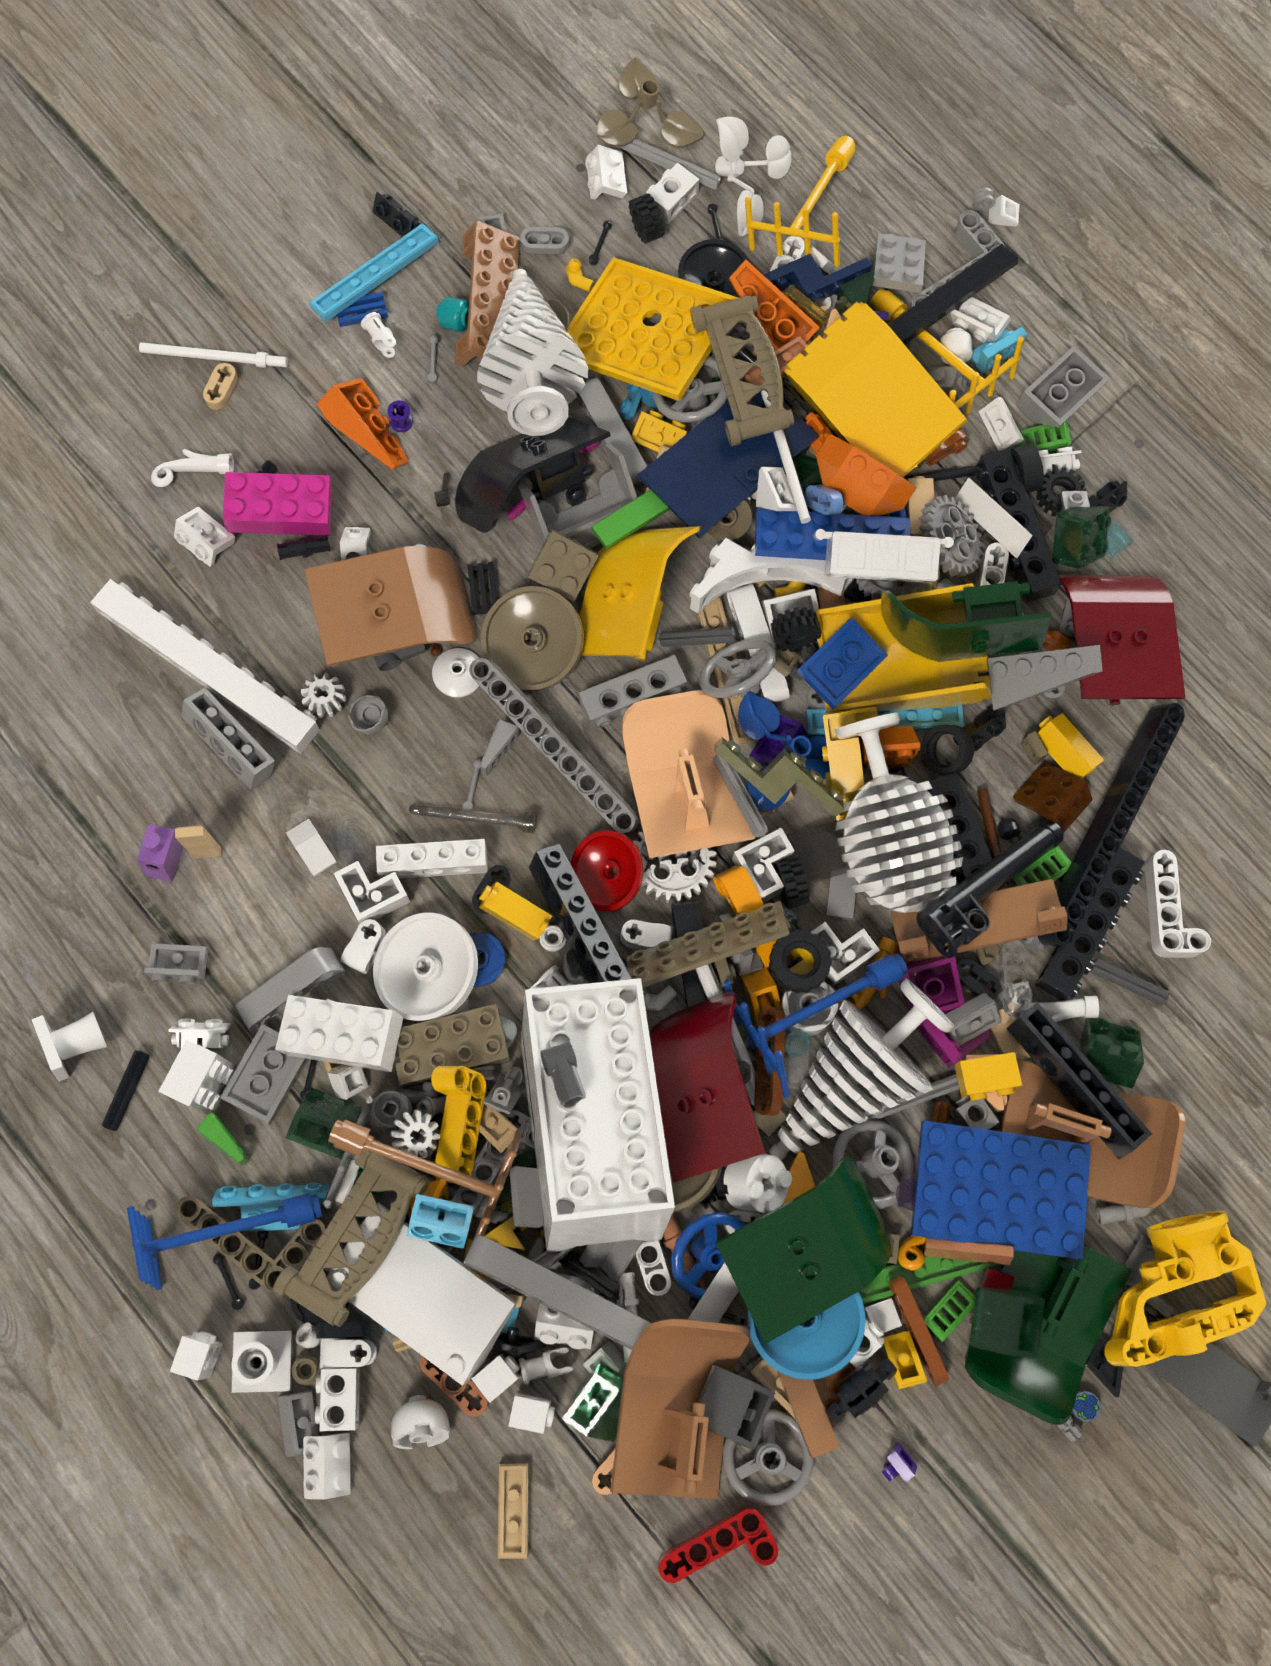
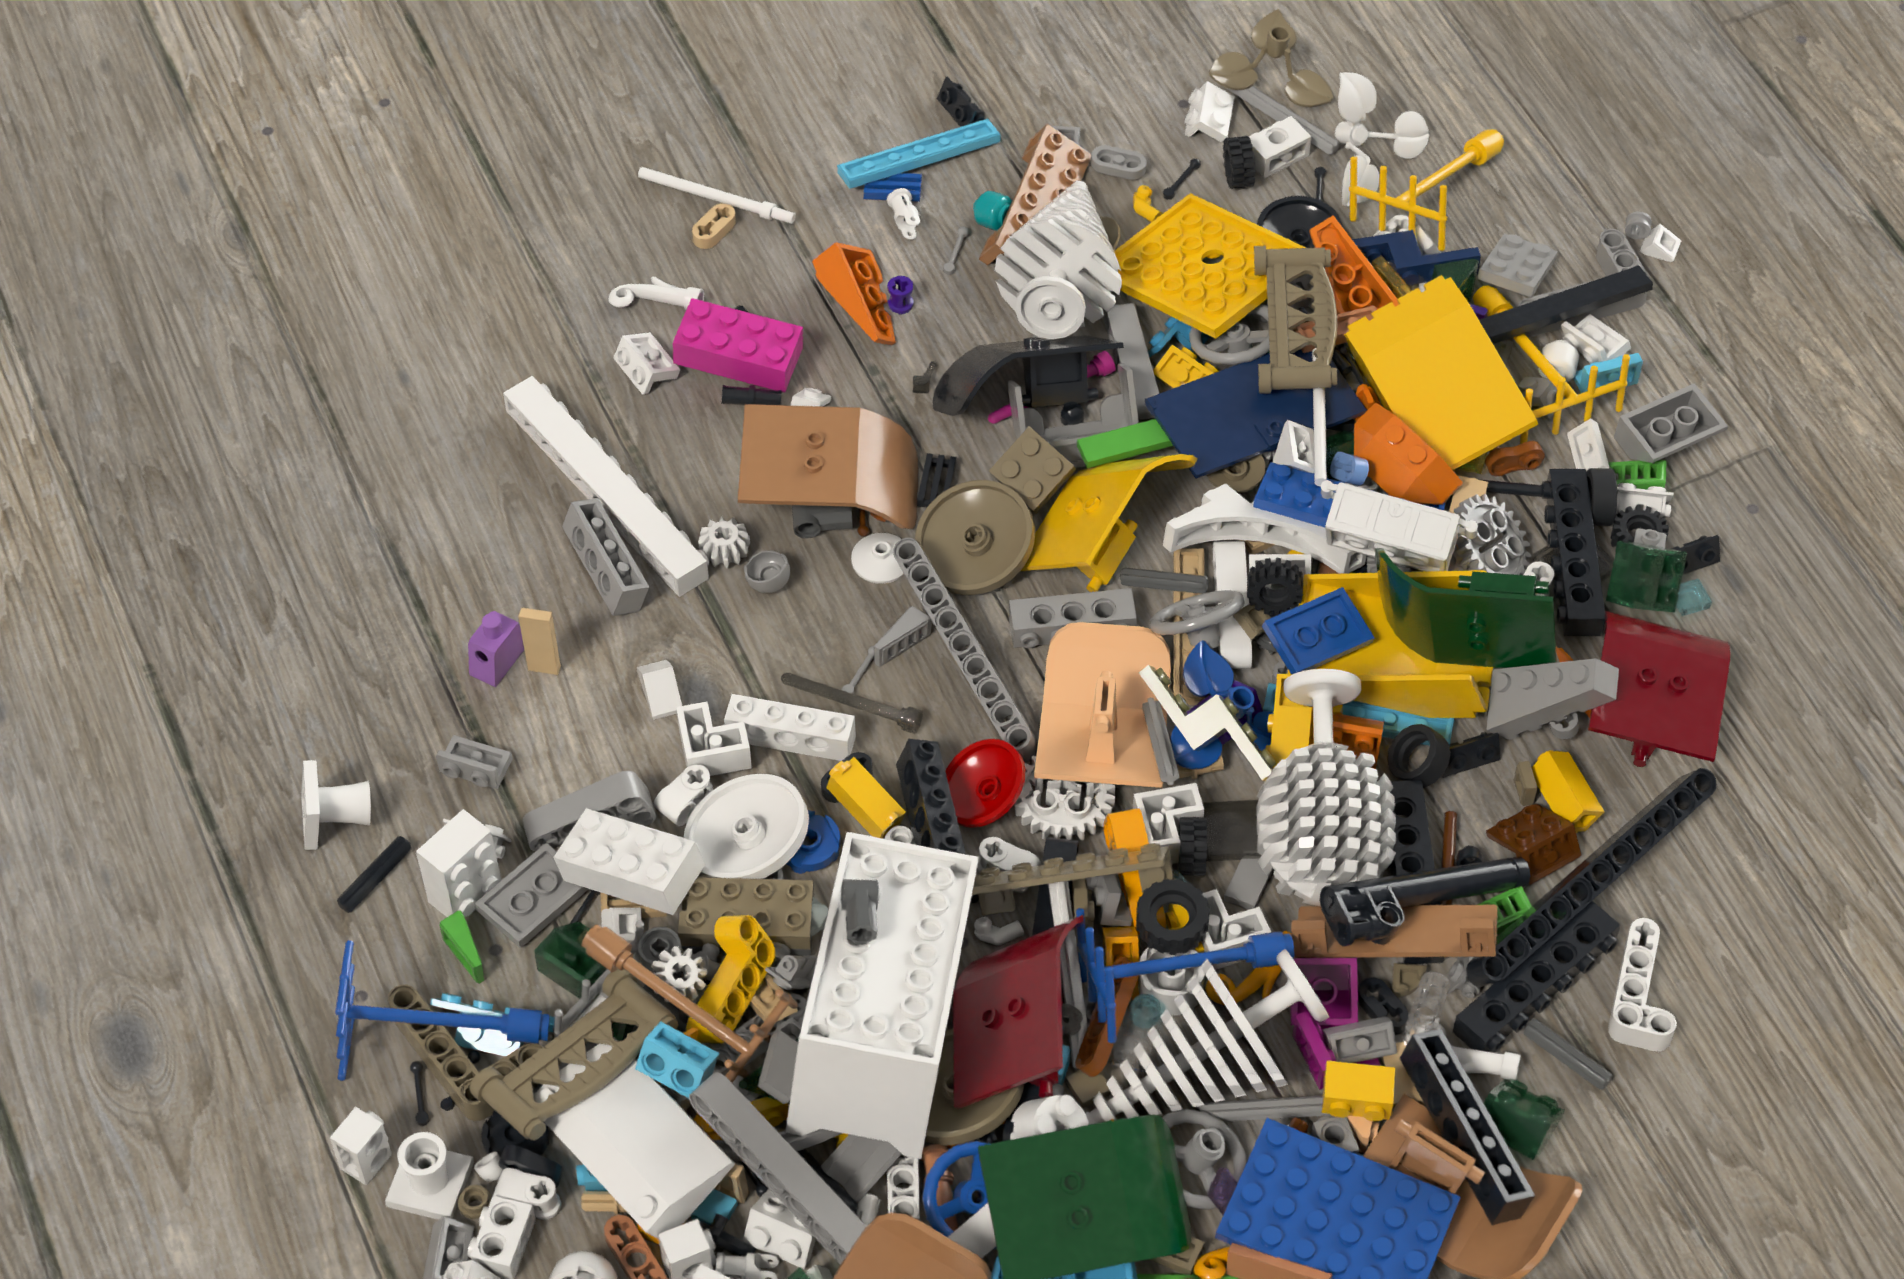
camera: 20 degrees right, 20 degrees down
(993, 518) = (1546, 536): white sticker -> none

